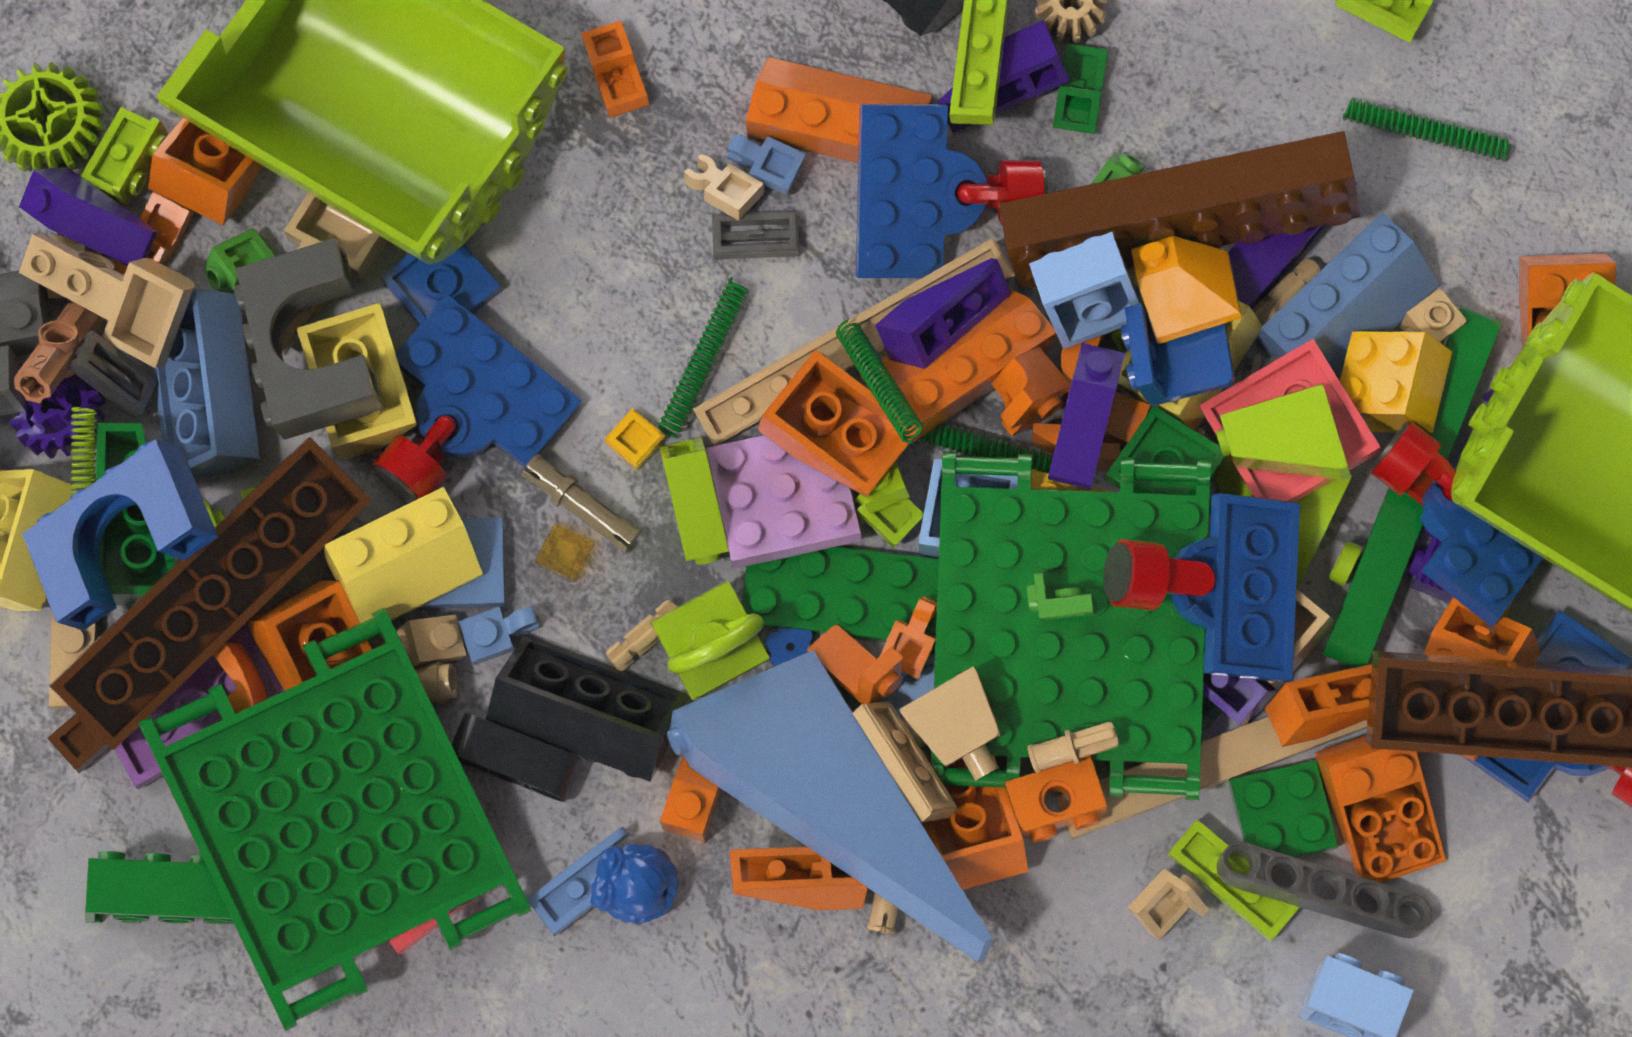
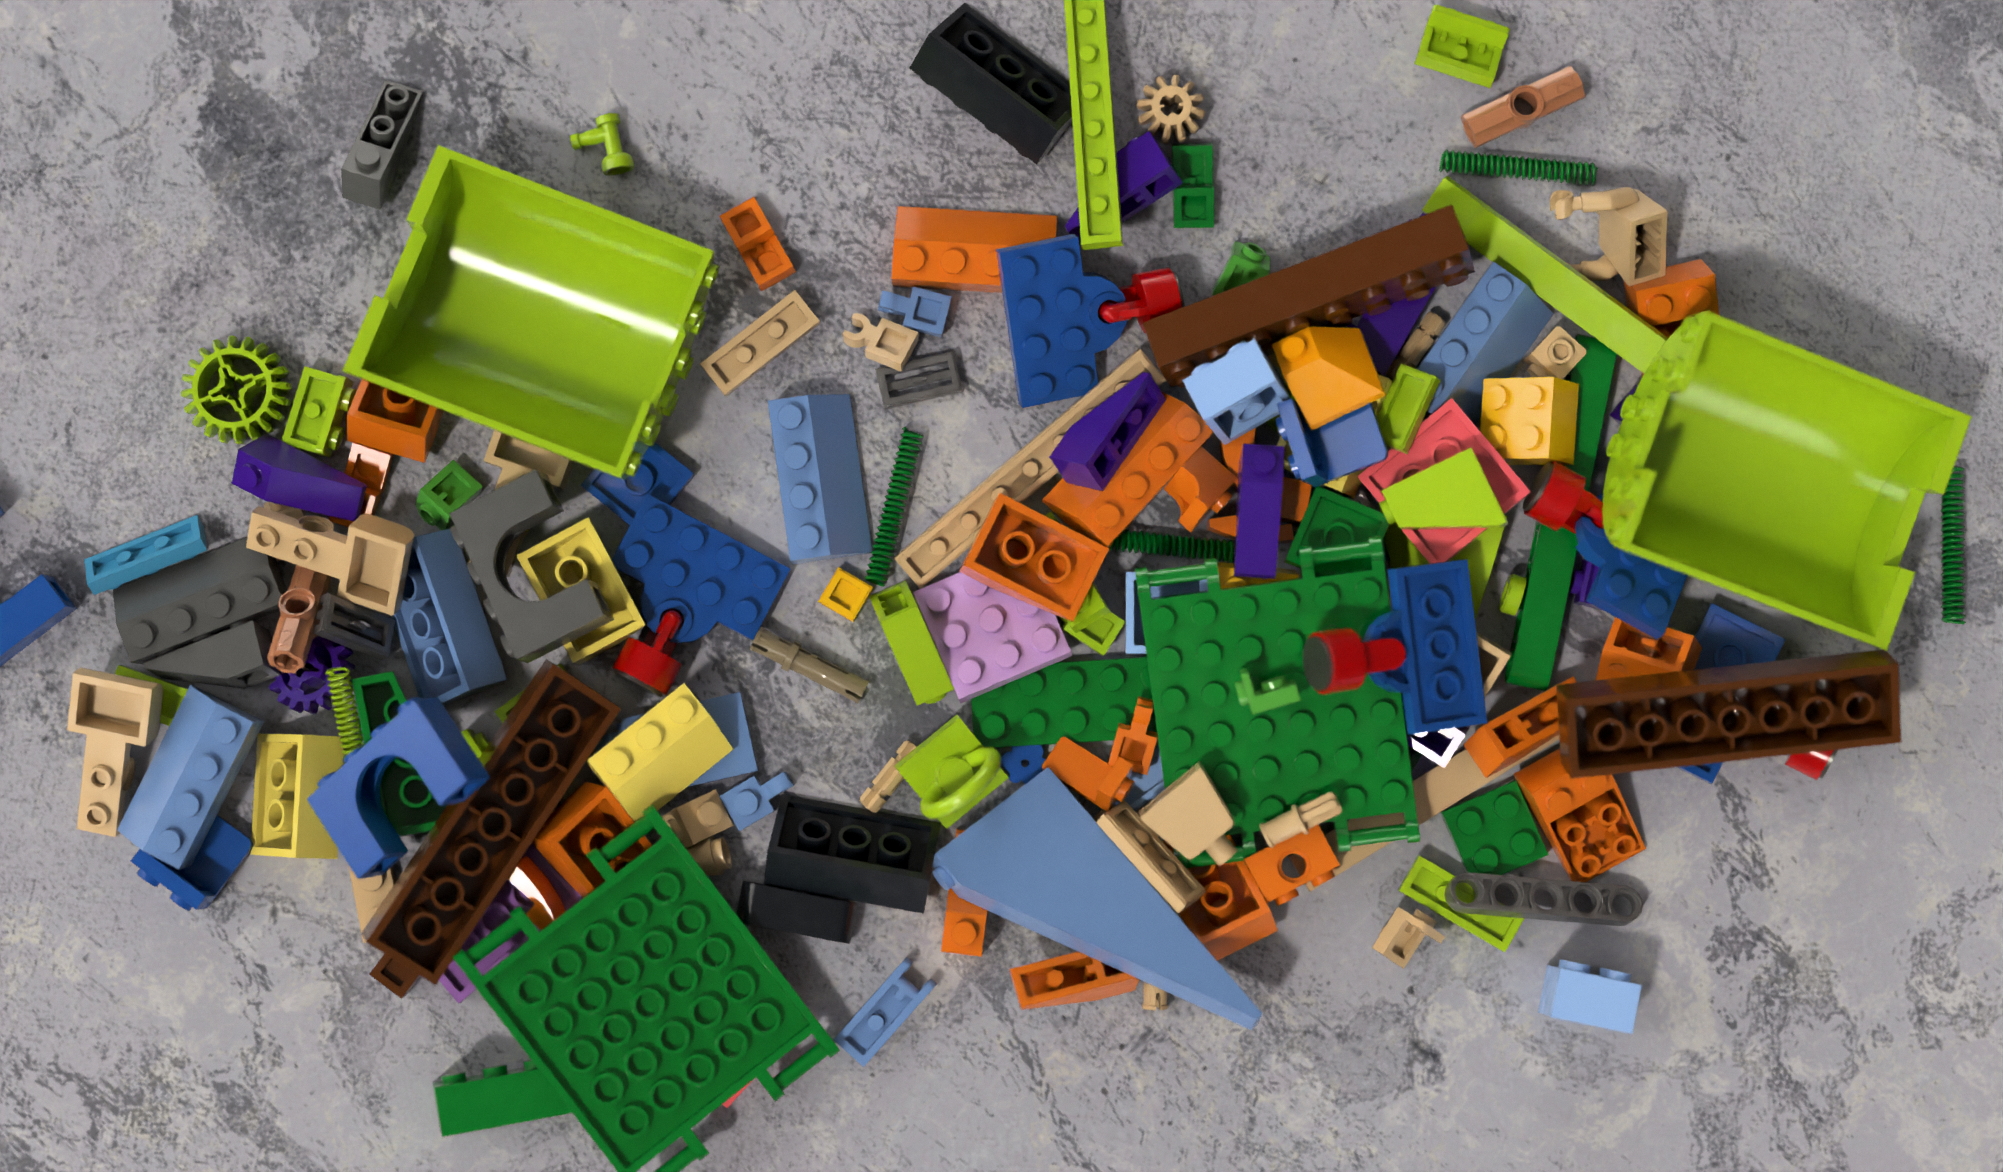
camera: 15 degrees left, 10 degrees up
(564, 552) = (802, 712): clear yellow tile -> none
(597, 167) = (760, 343): none -> tan plate
(630, 313) = (819, 477): none -> medium blue slope
(634, 883) = (928, 1009): blue hair -> none
(880, 380) = (1060, 504): green piece -> none
(1263, 340) = (1406, 406): none -> lime tile
(1417, 75) = (1543, 95): none -> nougat piece
(1442, 241) = (1550, 276): none -> lime tile
(1532, 209) = (1629, 233): none -> tan torso

